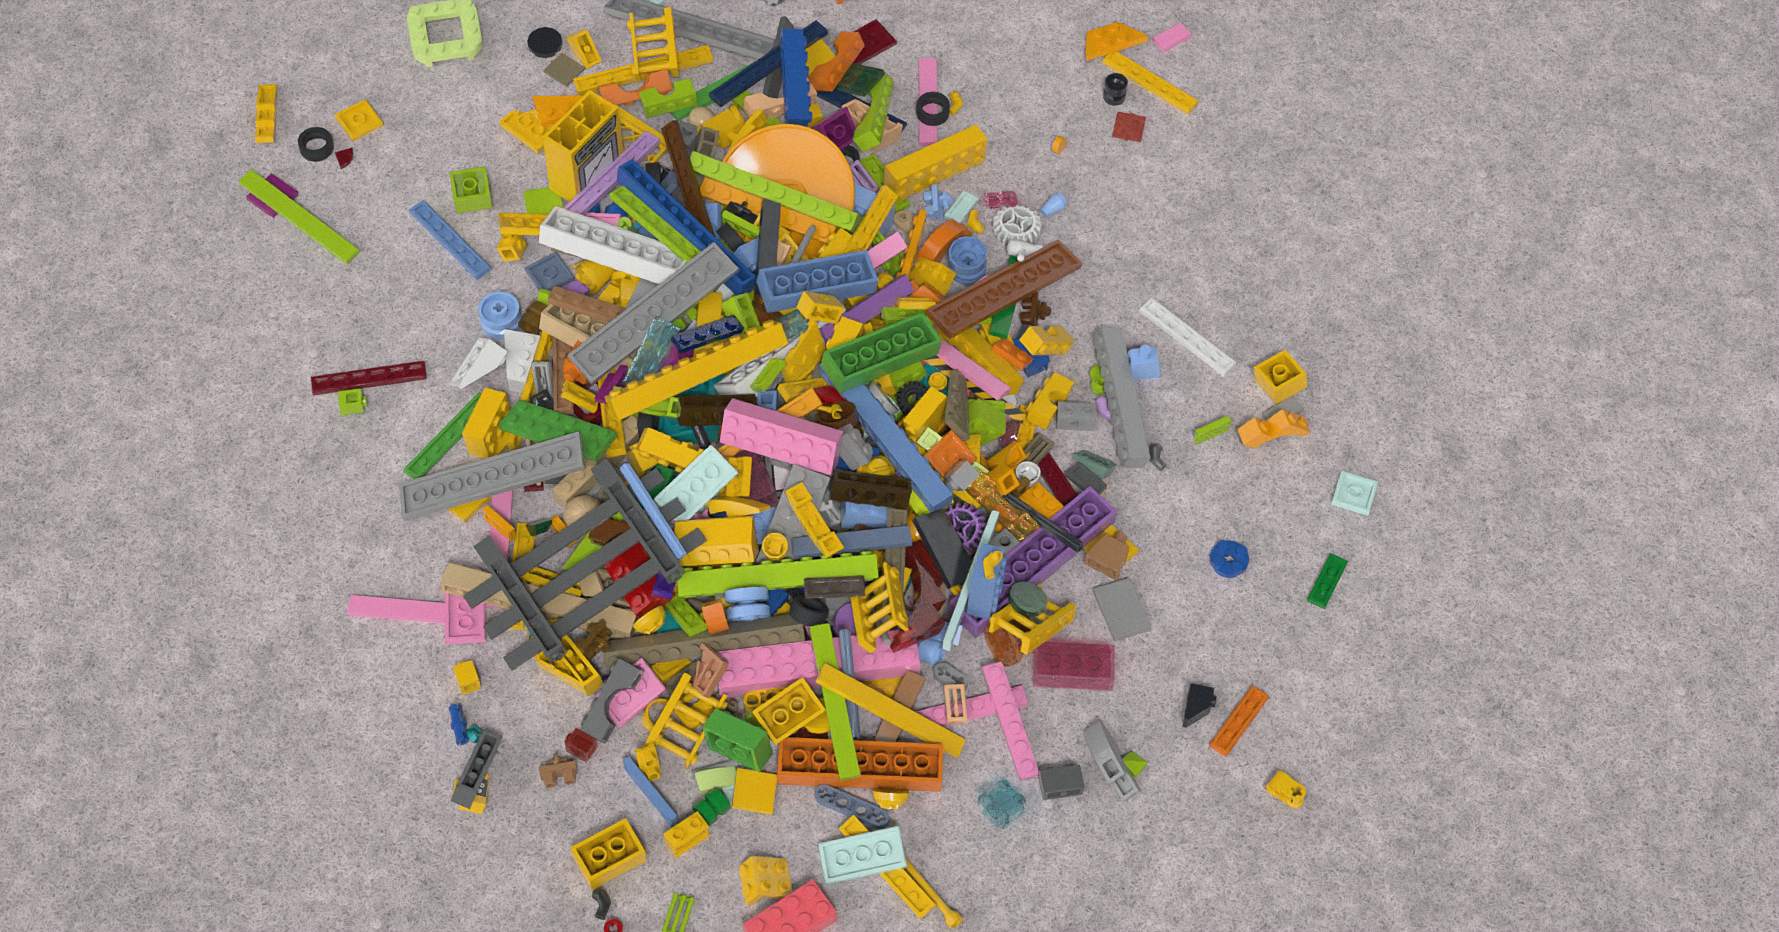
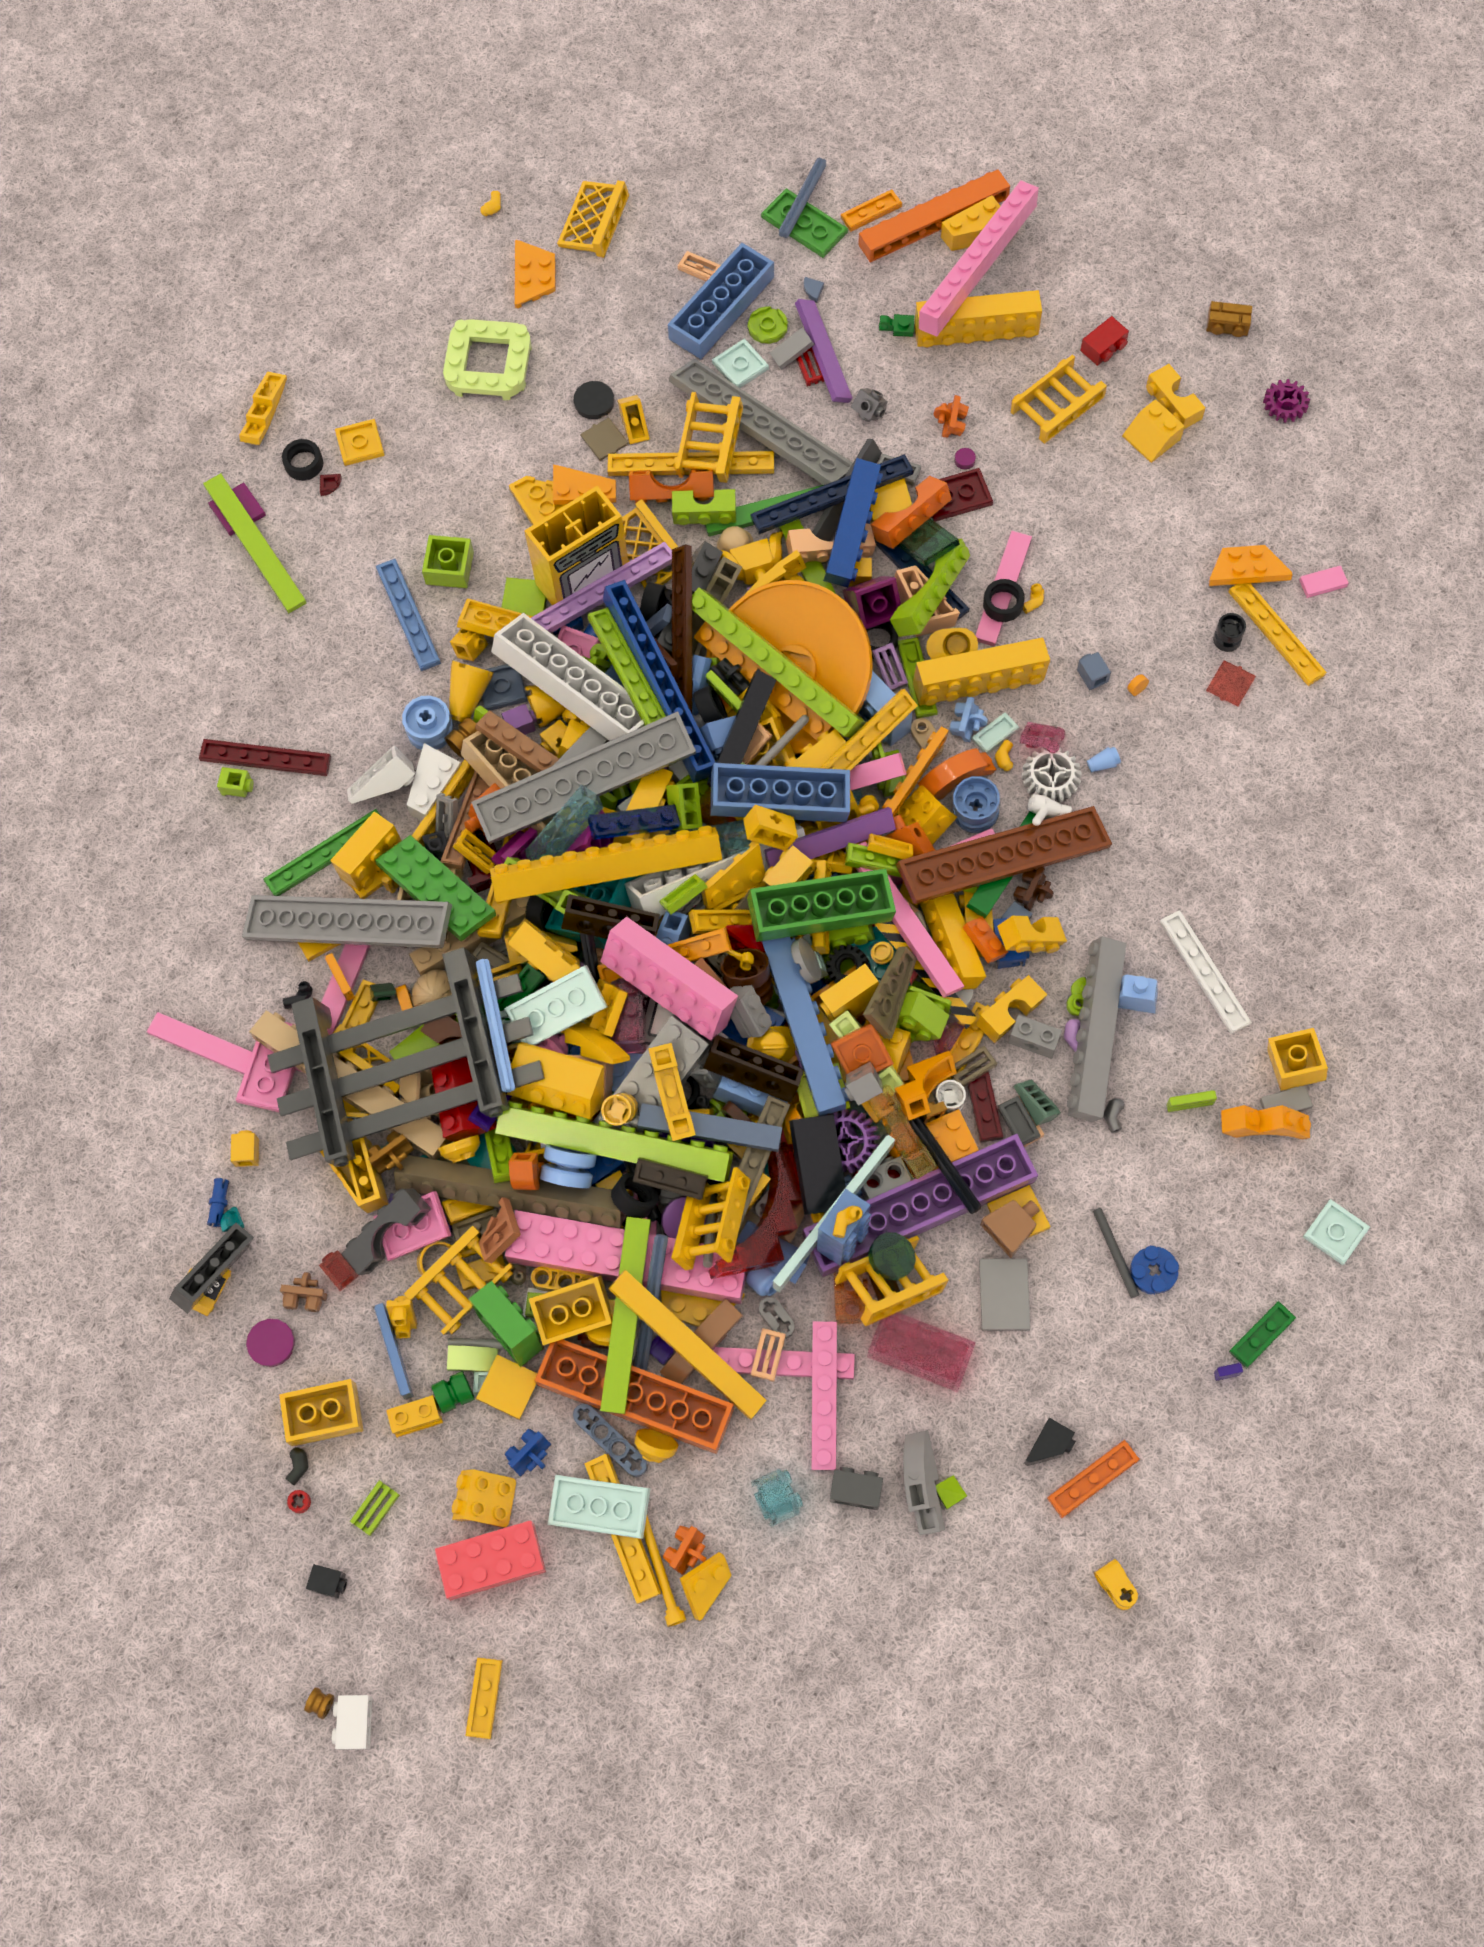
camera: 25 degrees right, 10 degrees up
(469, 550) = (303, 993): none -> black arm
(523, 278) = (466, 689): none -> yellow cone
(543, 817) = (270, 1342): none -> magenta tile
(792, 835) = (530, 1454): none -> blue hips
(862, 15) = (965, 458): none -> magenta tile
(869, 727) = (661, 1350): none -> dark purple tile
(902, 147) = (951, 642): none -> yellow piece
(947, 867) = (689, 1550): none -> orange hips
(969, 886) = (705, 1583): none -> yellow wing
(1021, 143) = (1093, 670): none -> sand blue brick
(1195, 554) = (1116, 1253): none -> dark grey bar
(1312, 613) = (1228, 1371): none -> dark purple tile

